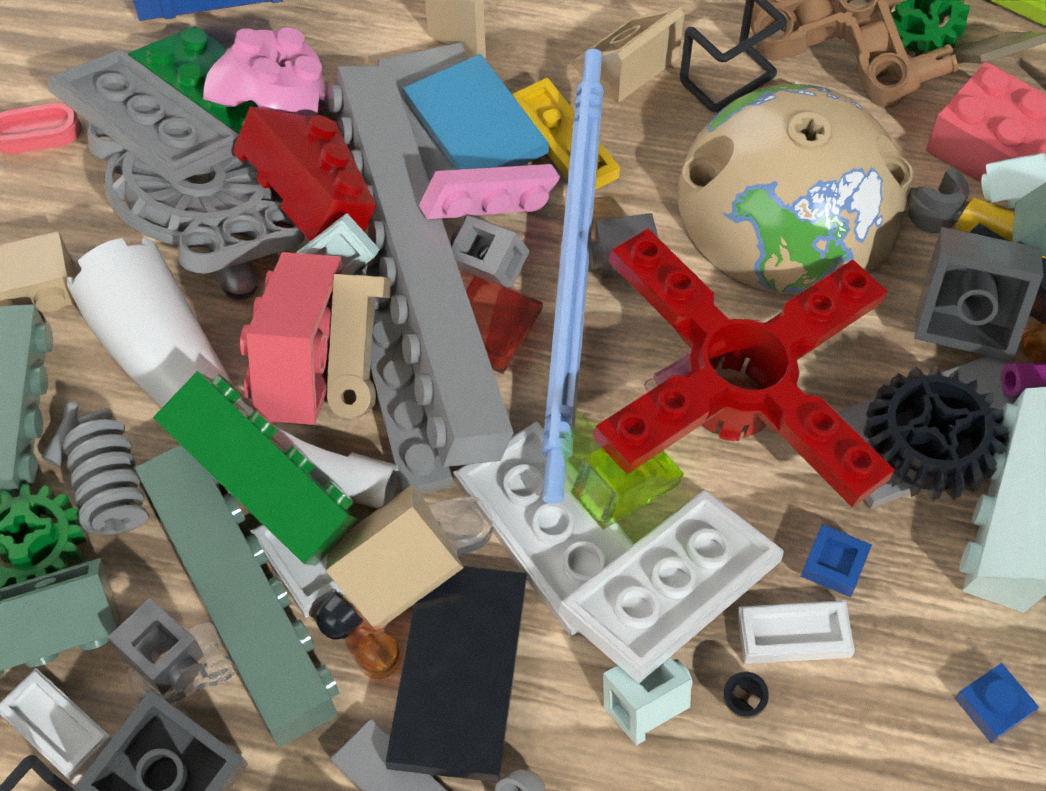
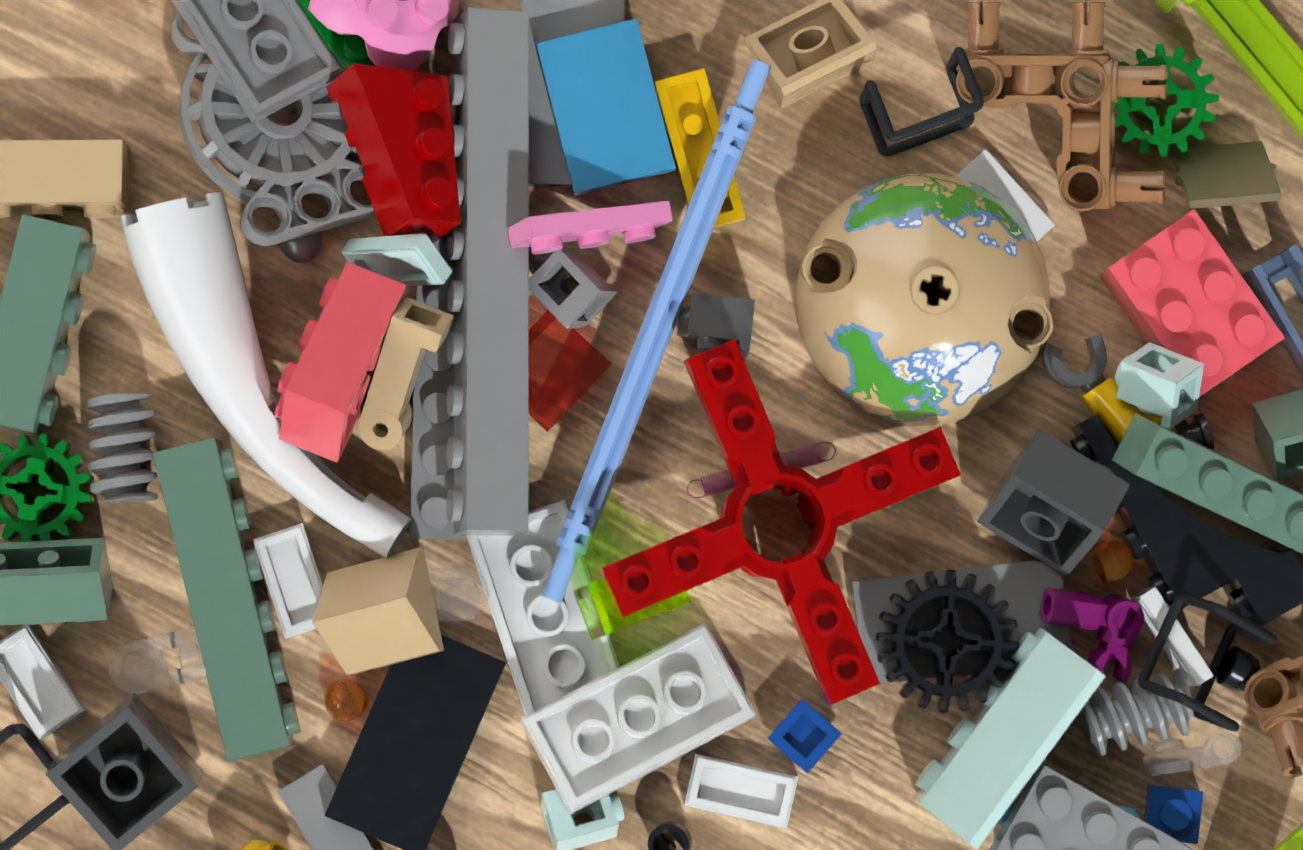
camera: 10 degrees right, 25 degrees up
(55, 453) = (97, 370): light grey bar -> none
(149, 635) = (124, 646): flat silver brick -> none
(257, 468) = (270, 499): green brick -> none
(336, 618) = (314, 655): black hinge -> none

